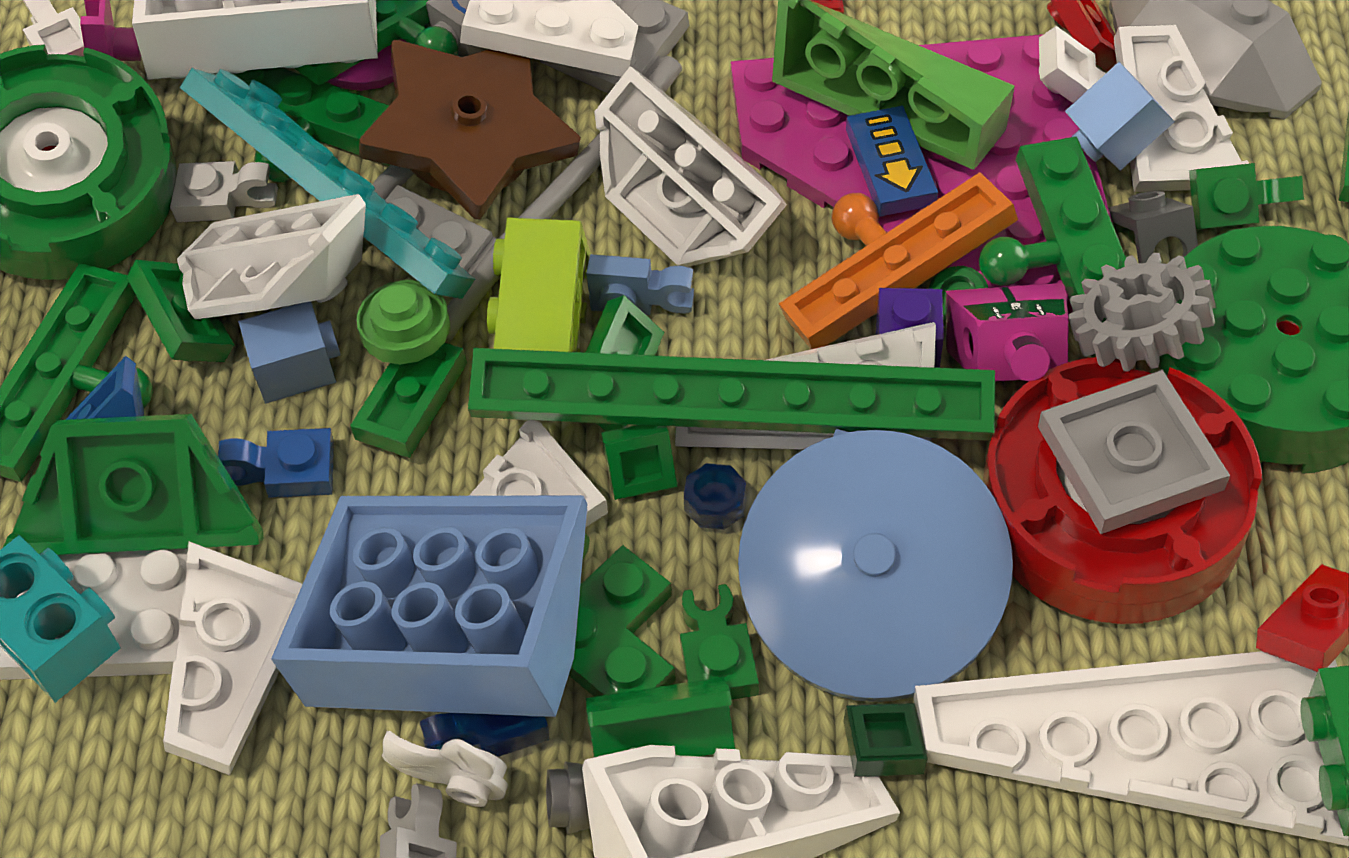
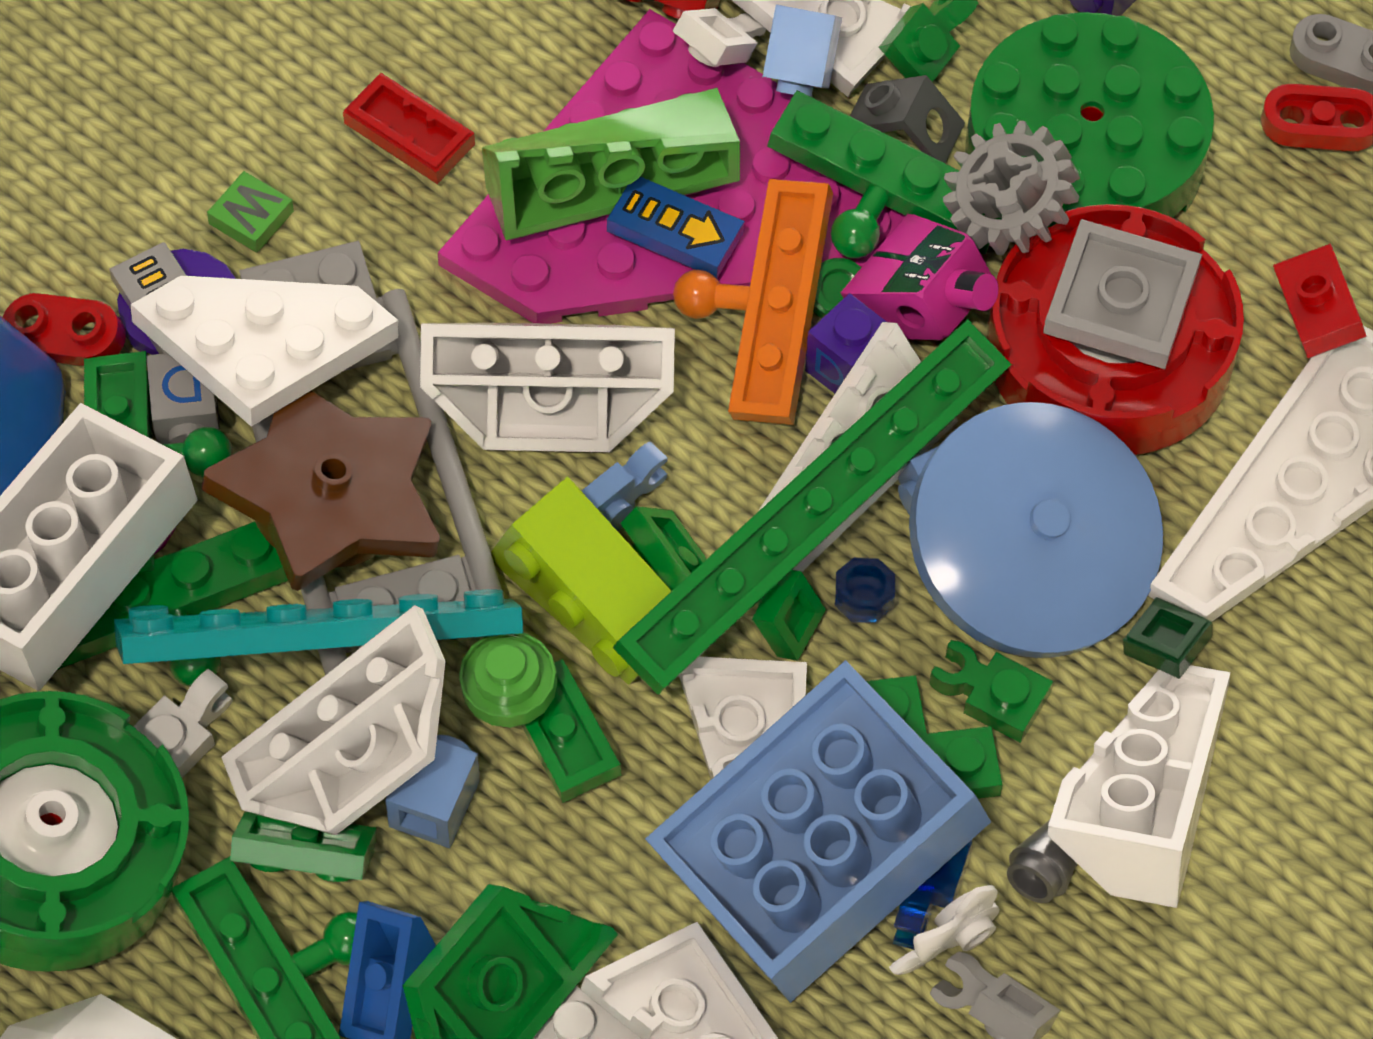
camera: 55 degrees left, 5 degrees up
(289, 465) = (546, 860): blue plate -> none
(681, 715) = (1034, 764): green panel -> none

